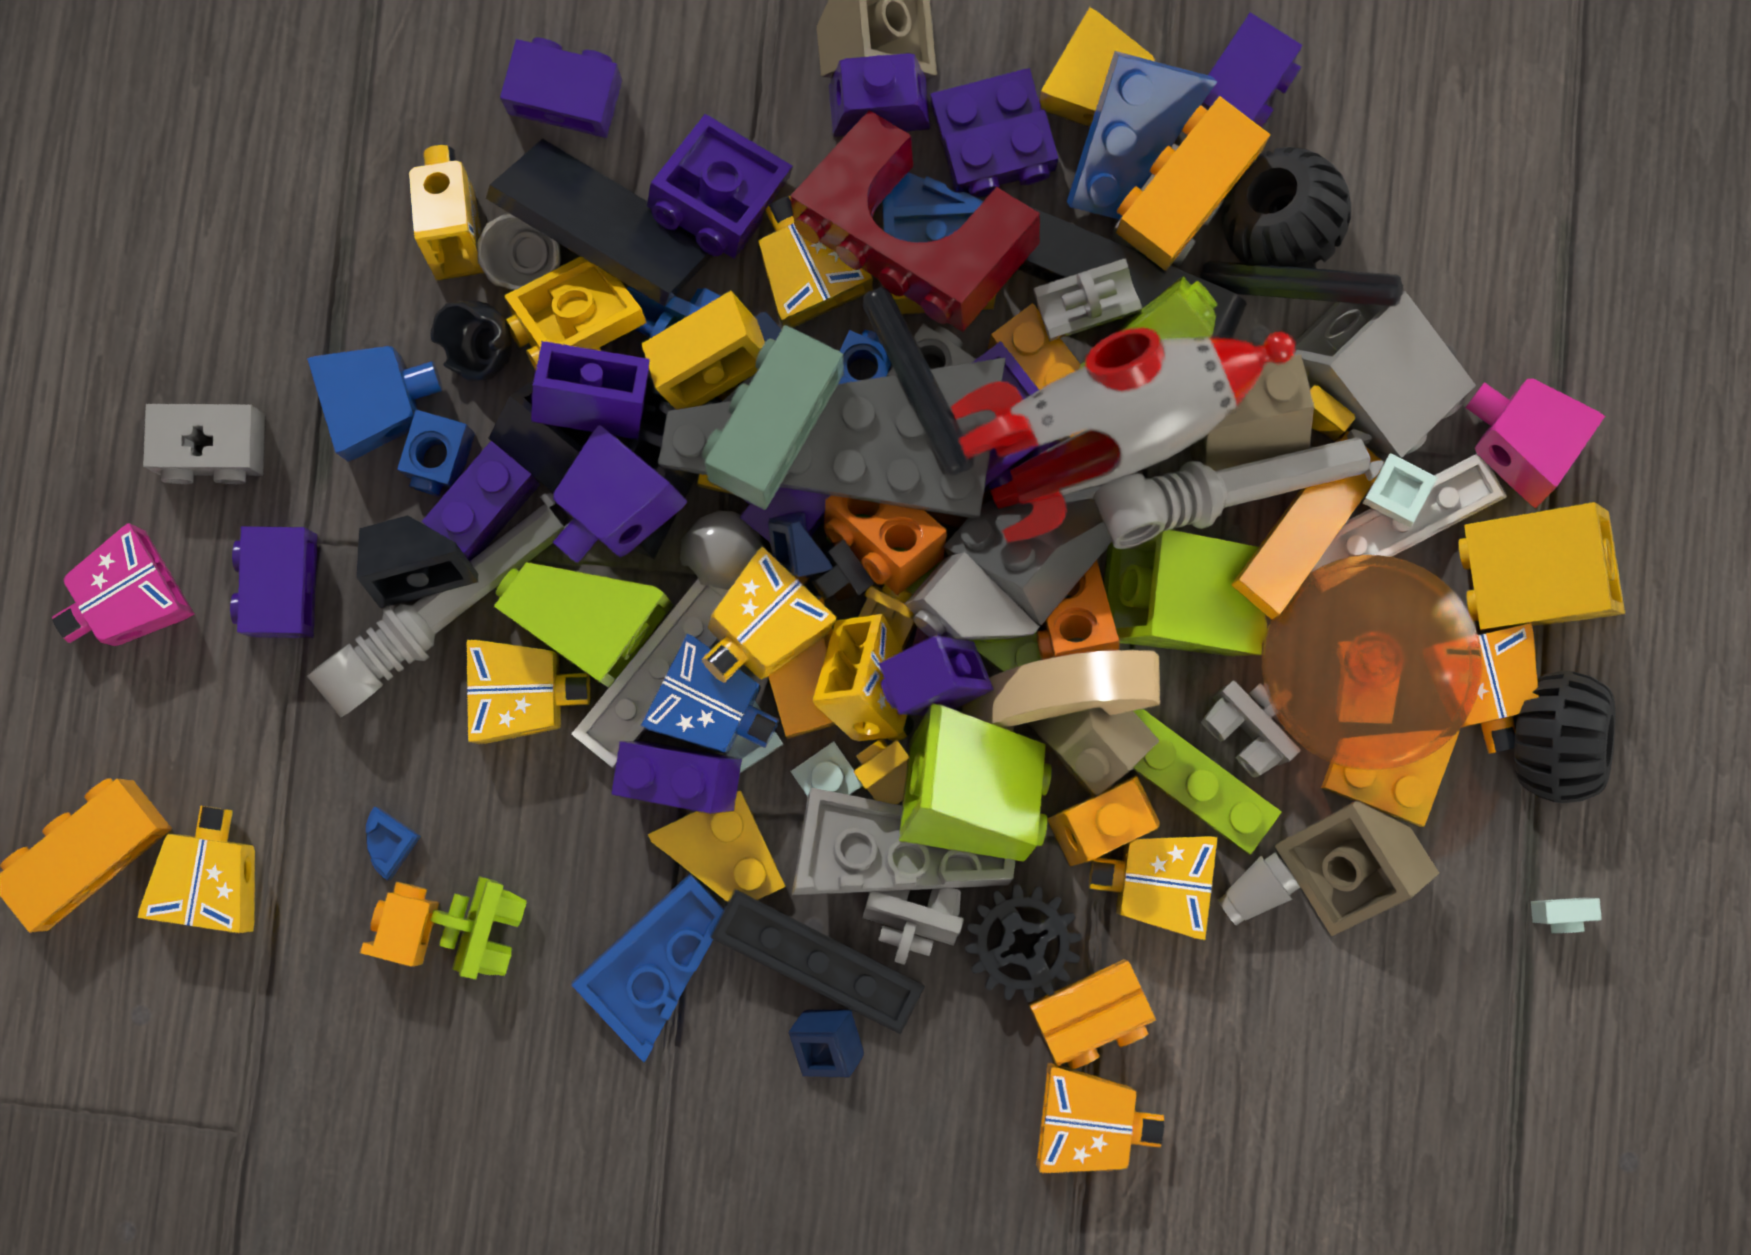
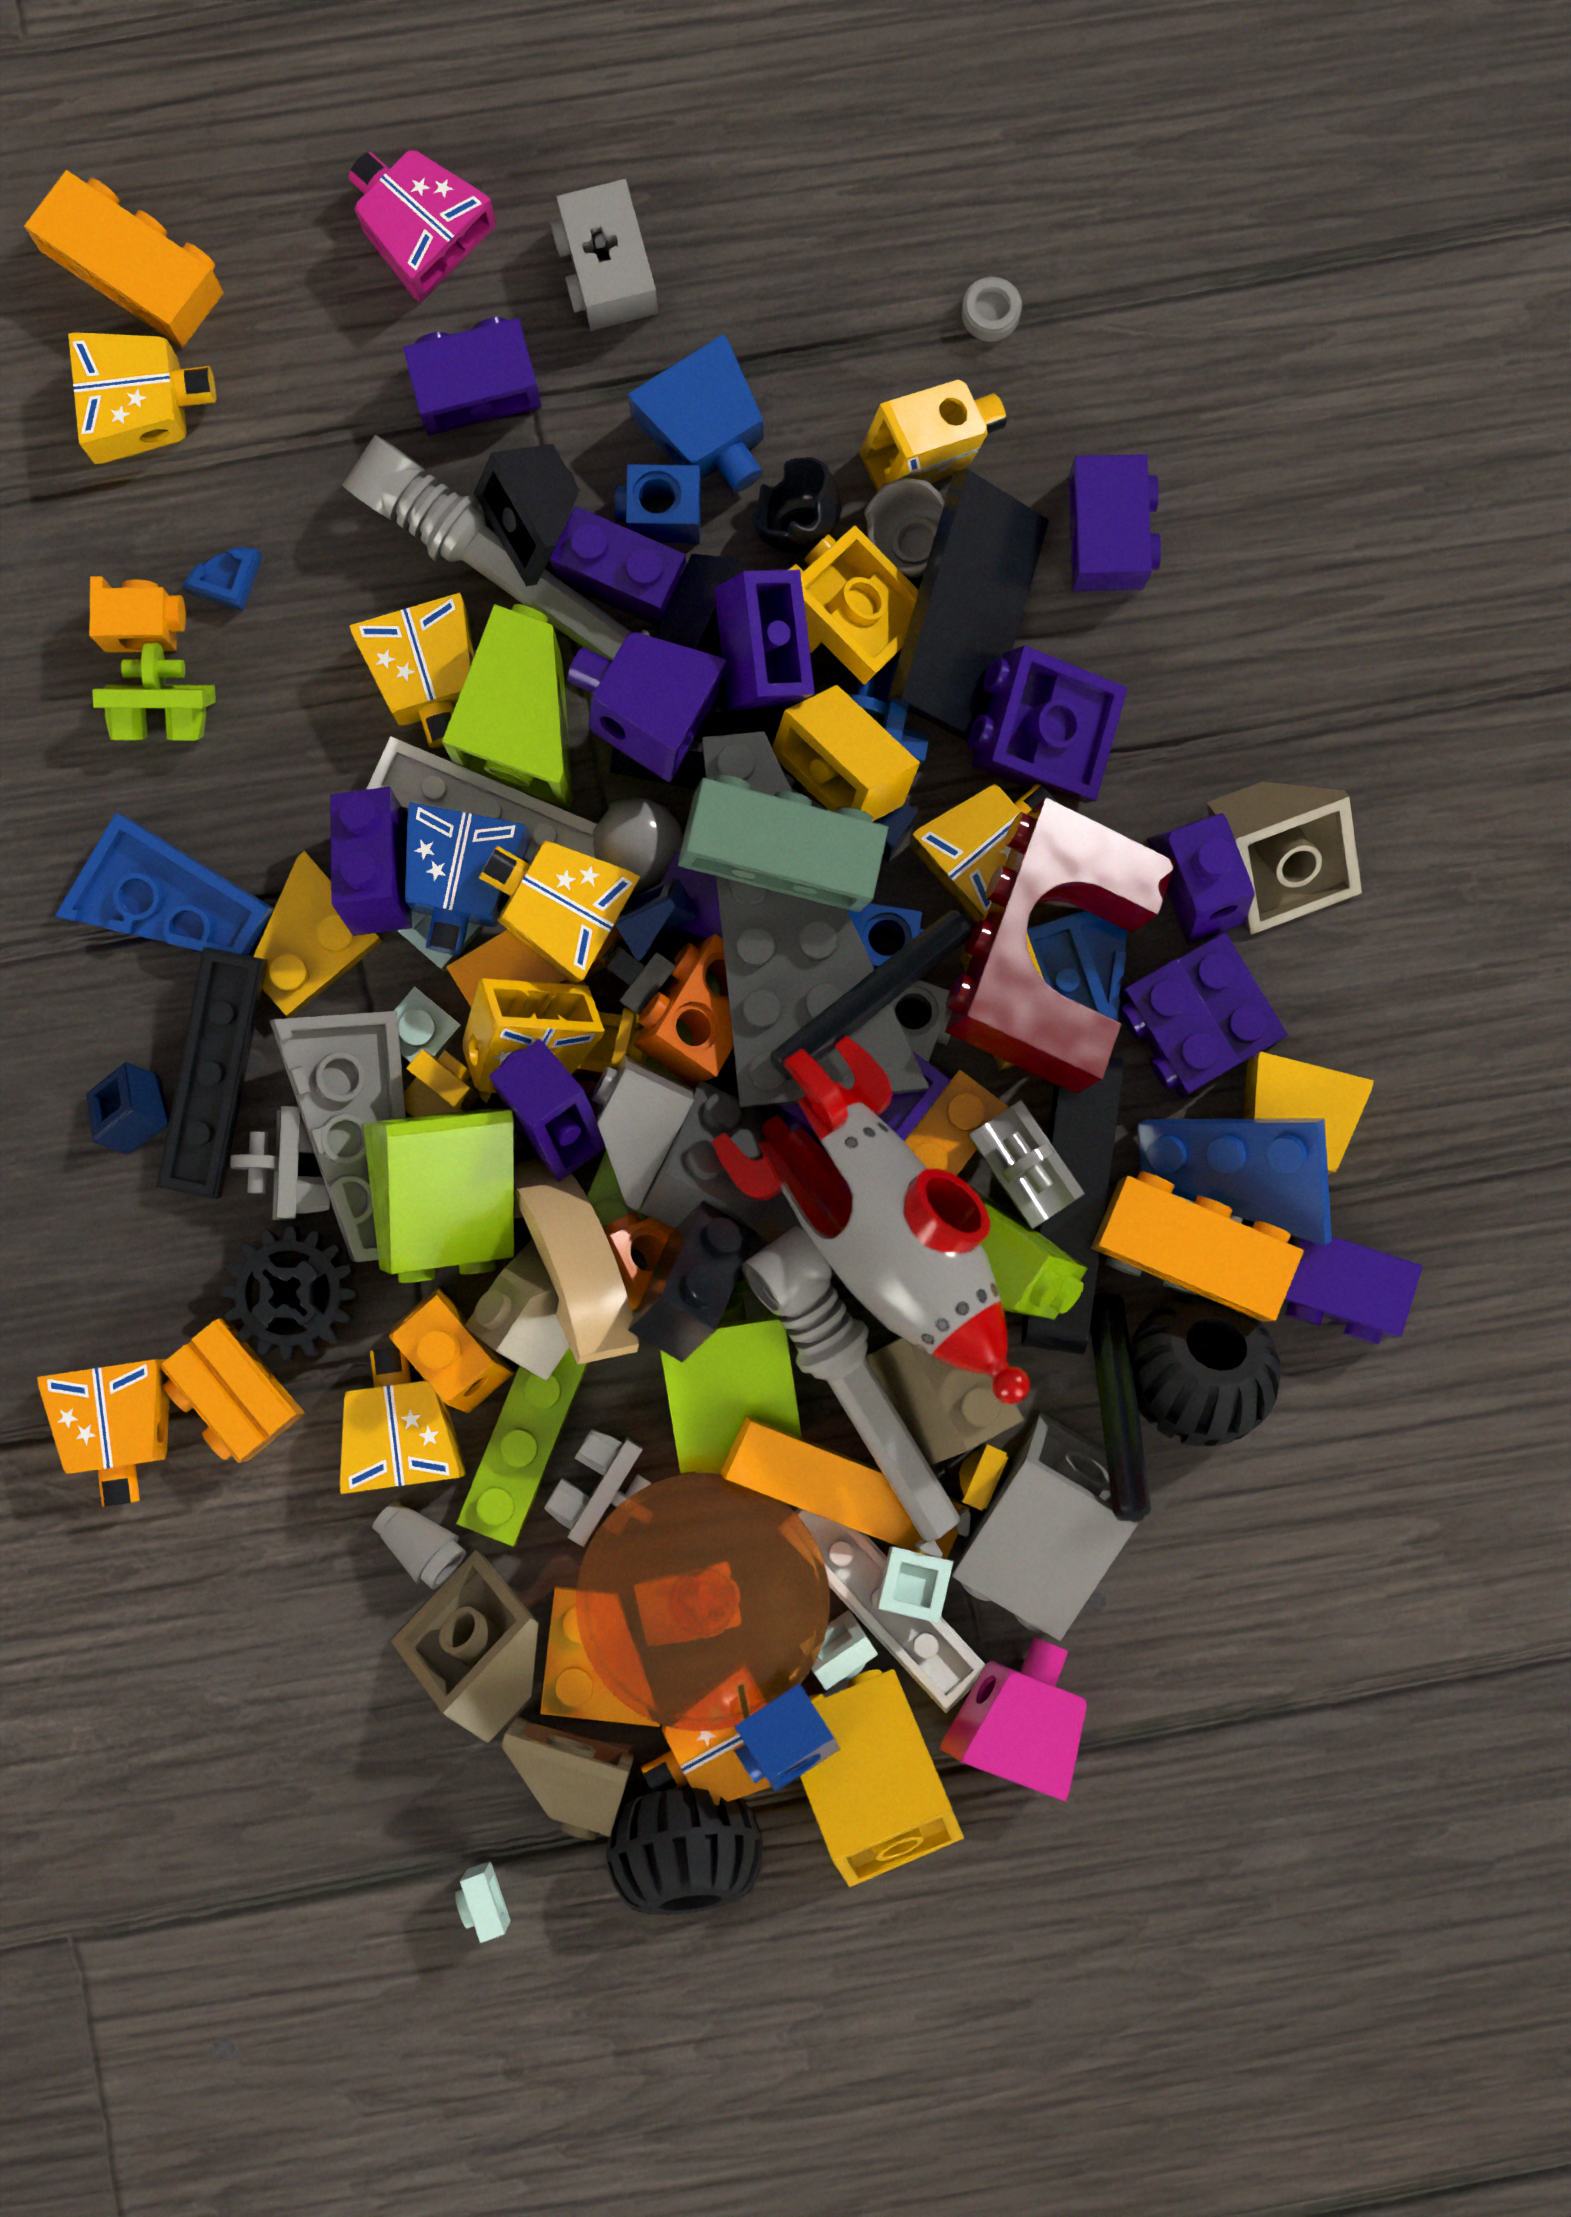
camera: 70 degrees right, 0 degrees up
(346, 135) = (991, 309): none -> light grey tile
(1116, 592) = (692, 1282): none -> black brick
(1440, 559) = (843, 1651): none -> light aqua plate
(1485, 807) = (570, 1775): none -> dark tan slope
(1503, 623) = (784, 1739): none -> blue brick

